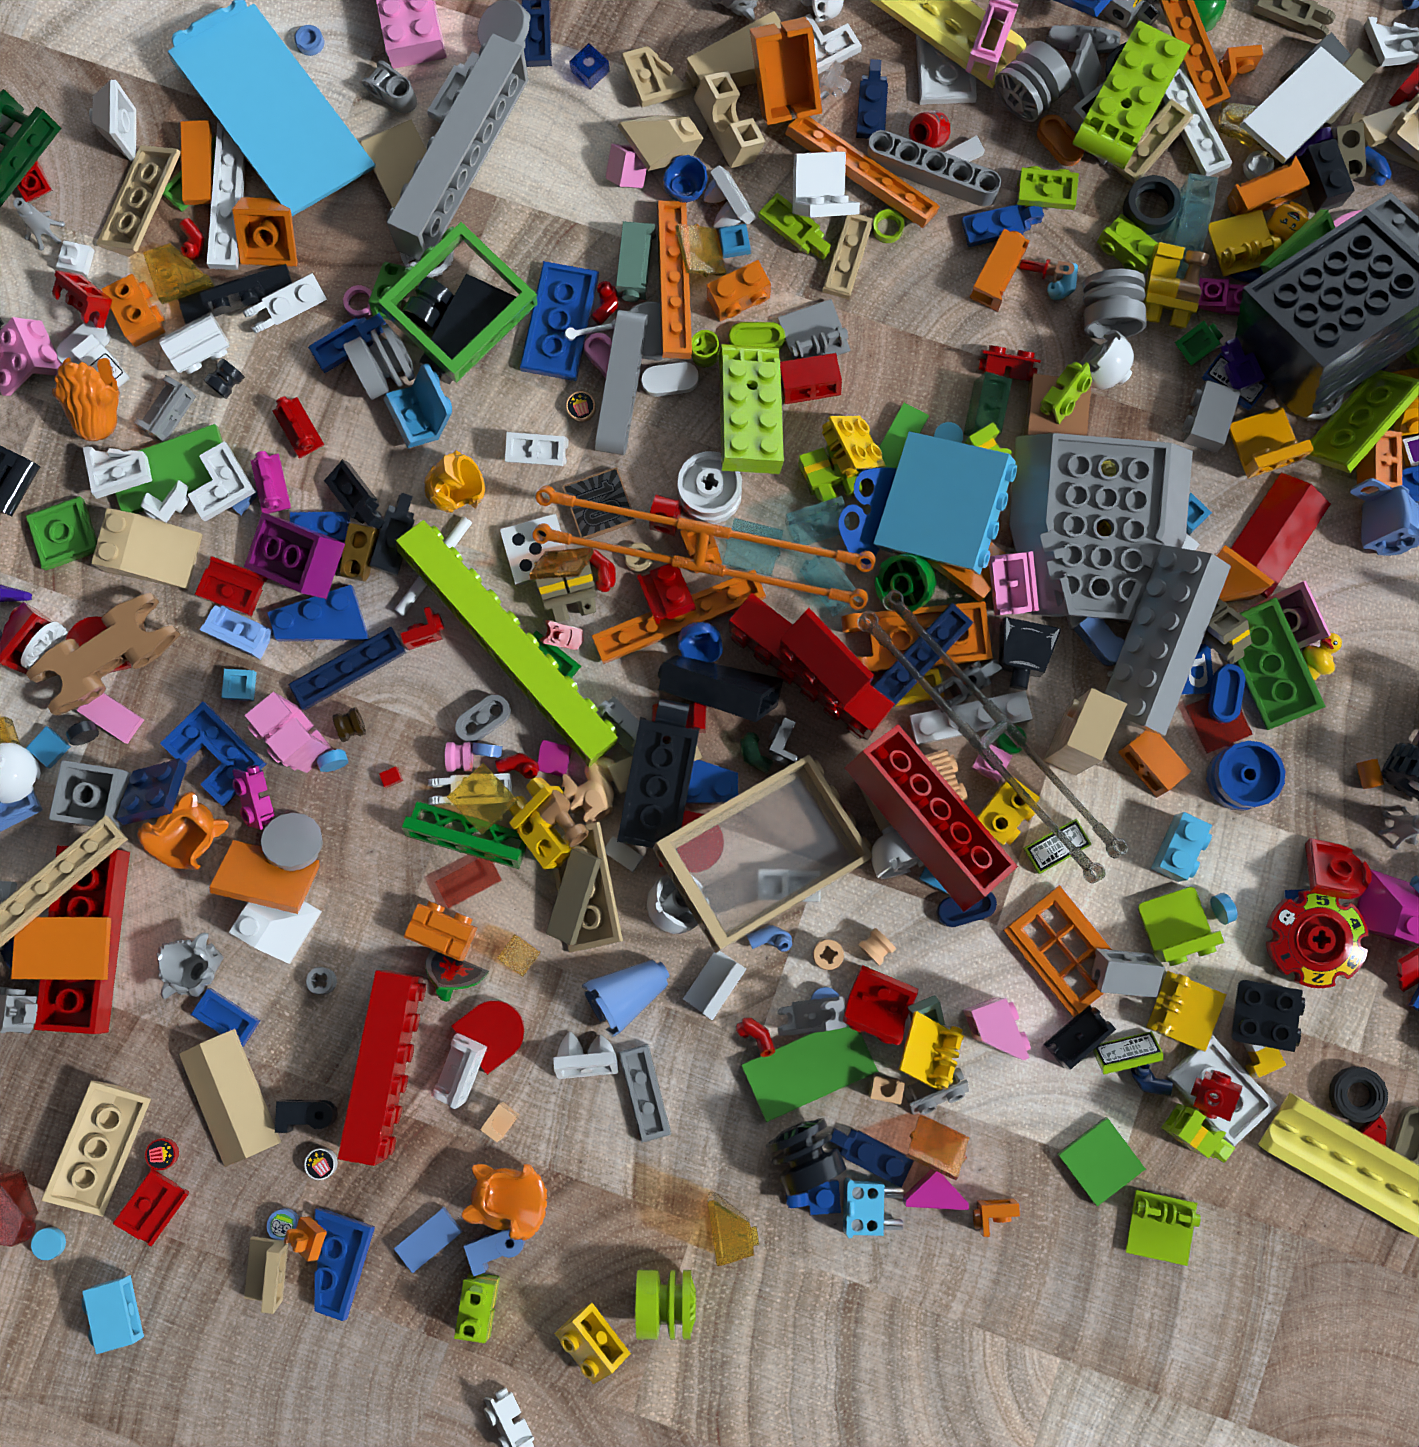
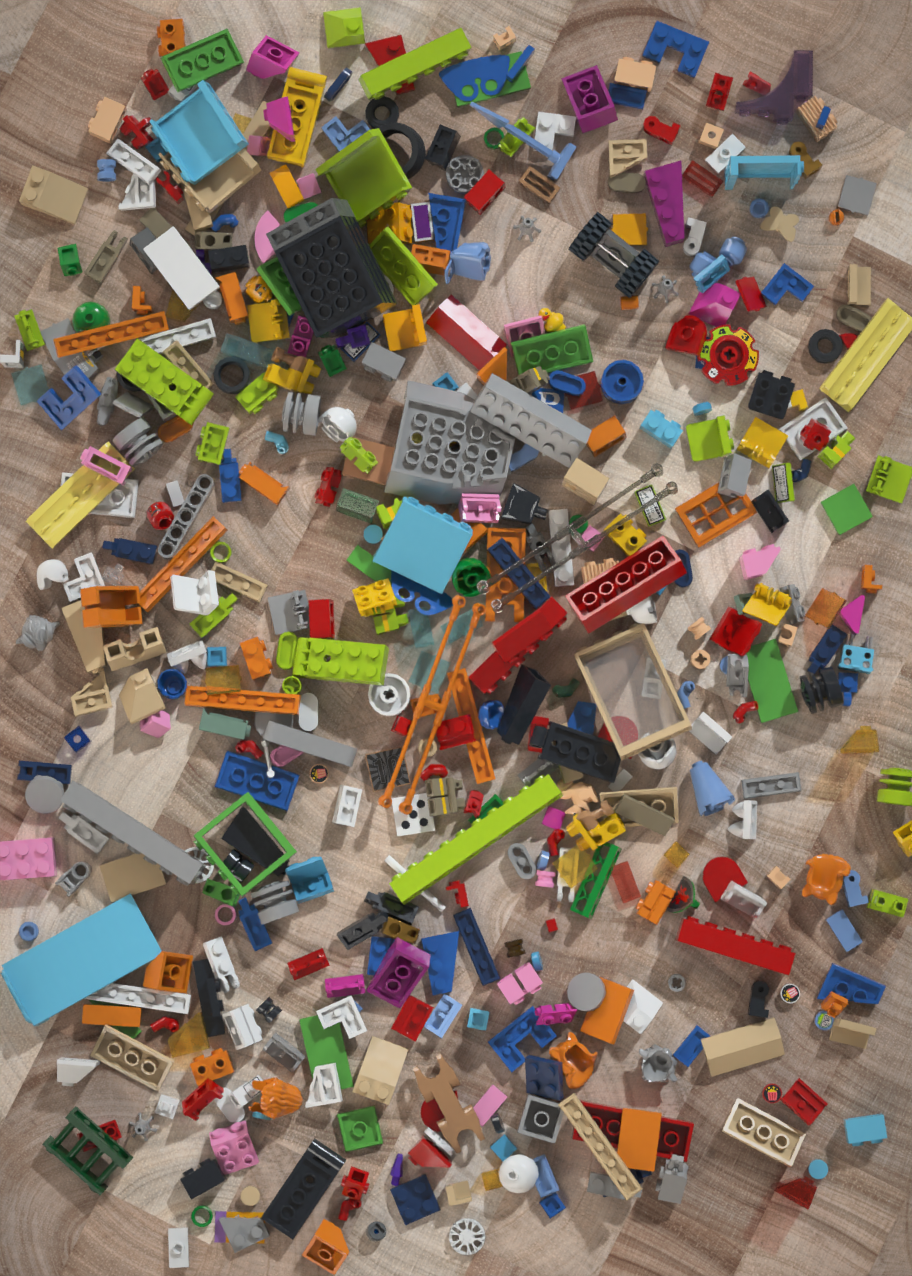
camera: 90 degrees left, 5 degrees up
(164, 510) = (353, 1052): white bracket -> none
(454, 483) = (364, 862): light orange helmet -> none
(561, 563) = (430, 796): clear orange piece -> none
(780, 735) = (557, 670): light grey bracket -> none
(1046, 268) = (266, 451): piece -> none

